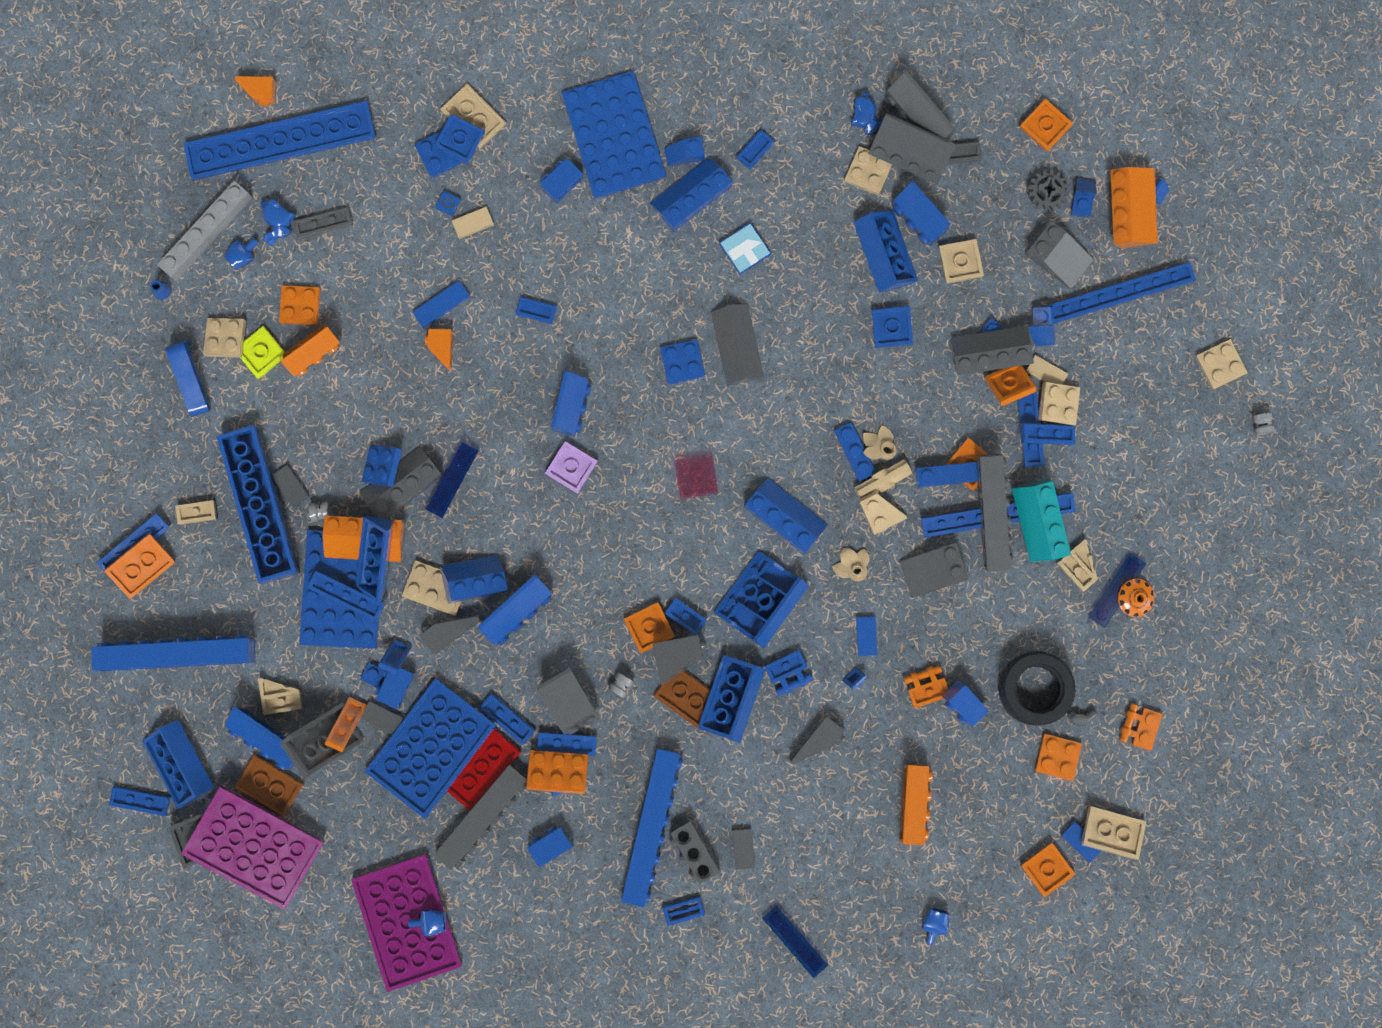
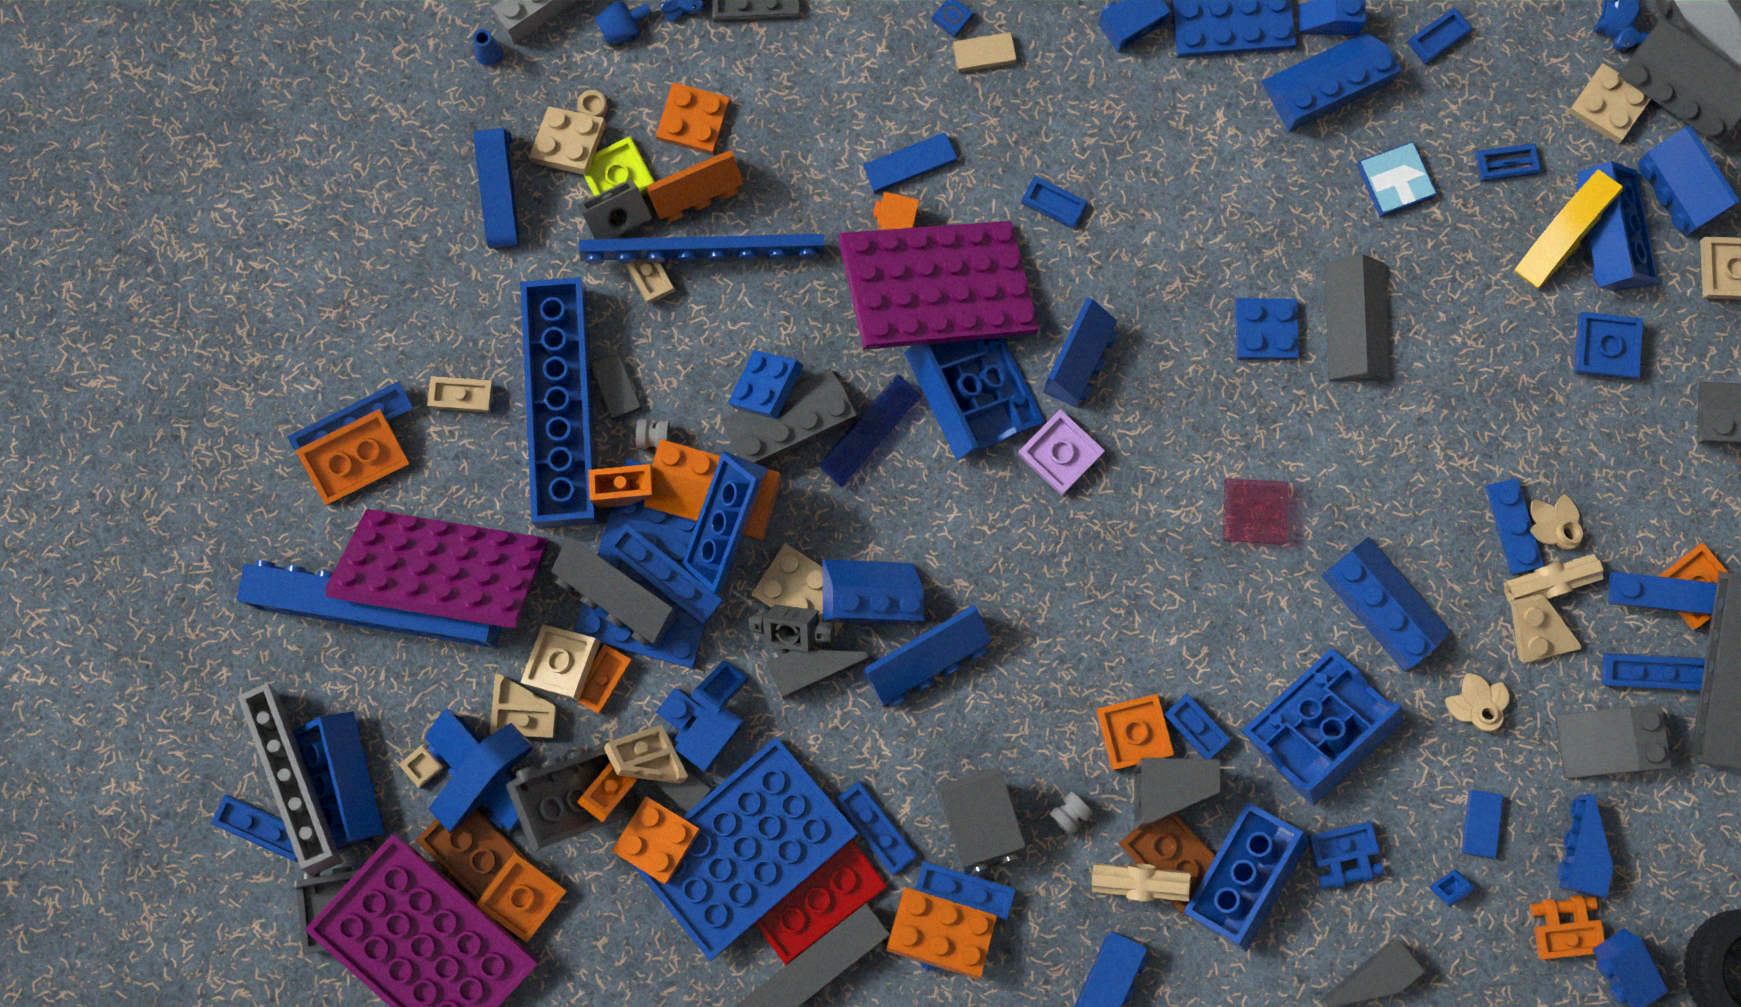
camera: 10 degrees right, 5 degrees down
(150, 768) = (289, 780): none -> light grey brick
(208, 623) = (438, 568): none -> magenta plate
(226, 743) = (421, 766): none -> tan tile
(234, 310) = (592, 103): none -> tan tile
(254, 377) = (624, 197): none -> dark grey brick
(262, 741) = (479, 775): none -> blue beam
(292, 410) = (650, 280): none -> tan plate
(295, 662) = (560, 662): none -> tan plate
(304, 806) = (521, 897): none -> orange plate
(306, 549) = (620, 485): none -> orange slope
(314, 392) = (712, 247): none -> blue plate
(317, 614) = (613, 592): none -> dark grey slope
(323, 667) = (603, 678): none -> orange plate
(360, 707) = (646, 756): none -> tan wing
(377, 755) = (656, 840): none -> orange plate
(430, 611) = (777, 630): none -> dark grey piece
(473, 381) = (937, 284): none -> magenta plate
(510, 438) = (974, 392): none -> blue piece
(669, 716) = (1141, 882): none -> tan piece
(801, 234) = (1509, 173): none -> blue tile
(852, 260) = (1568, 228): none -> yellow slope
(931, 644) = (1587, 857): none -> blue slope

